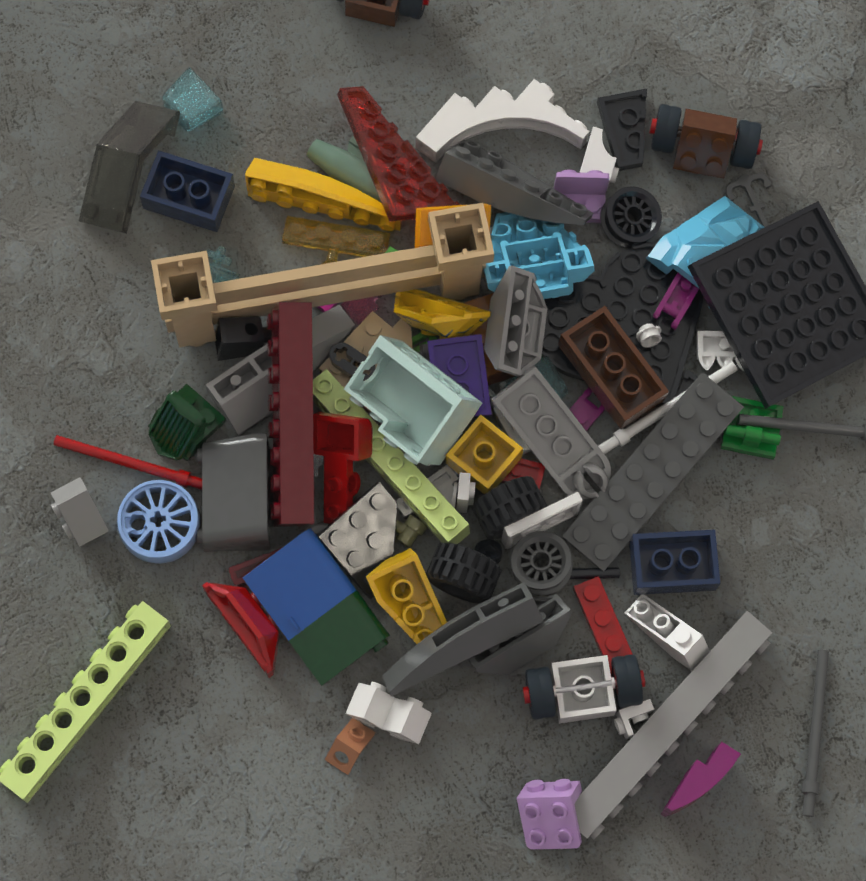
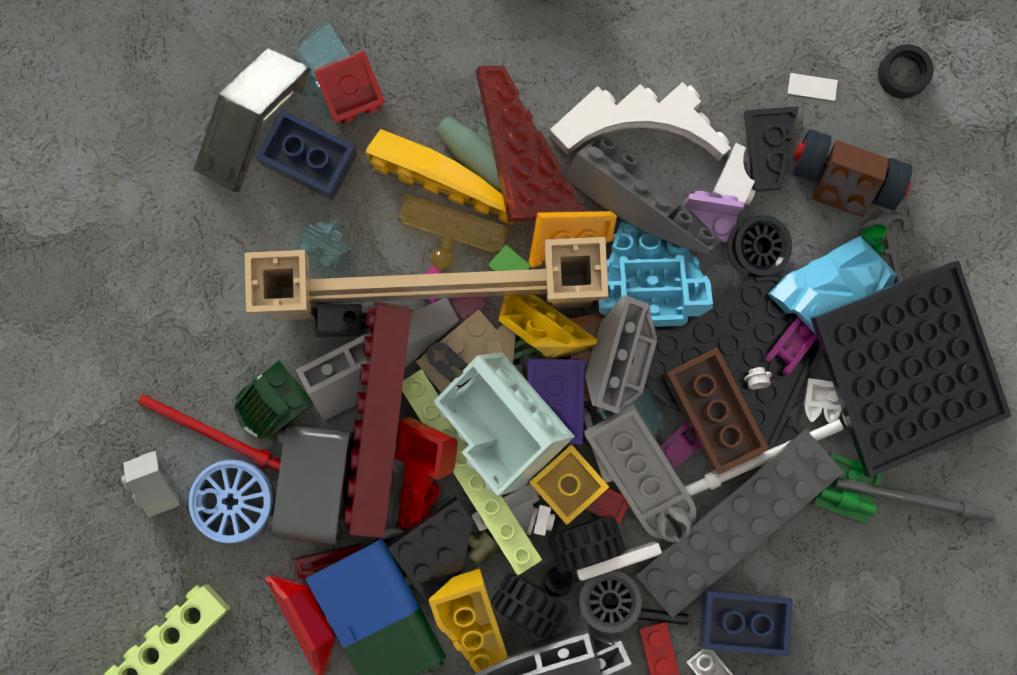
camera: 10 degrees right, 10 degrees up
(219, 124) = (349, 87): none -> red plate
(658, 71) = (812, 86): none -> white sticker
(739, 195) = (875, 236): none -> green rock
(747, 28) = (917, 55): none -> black tyre

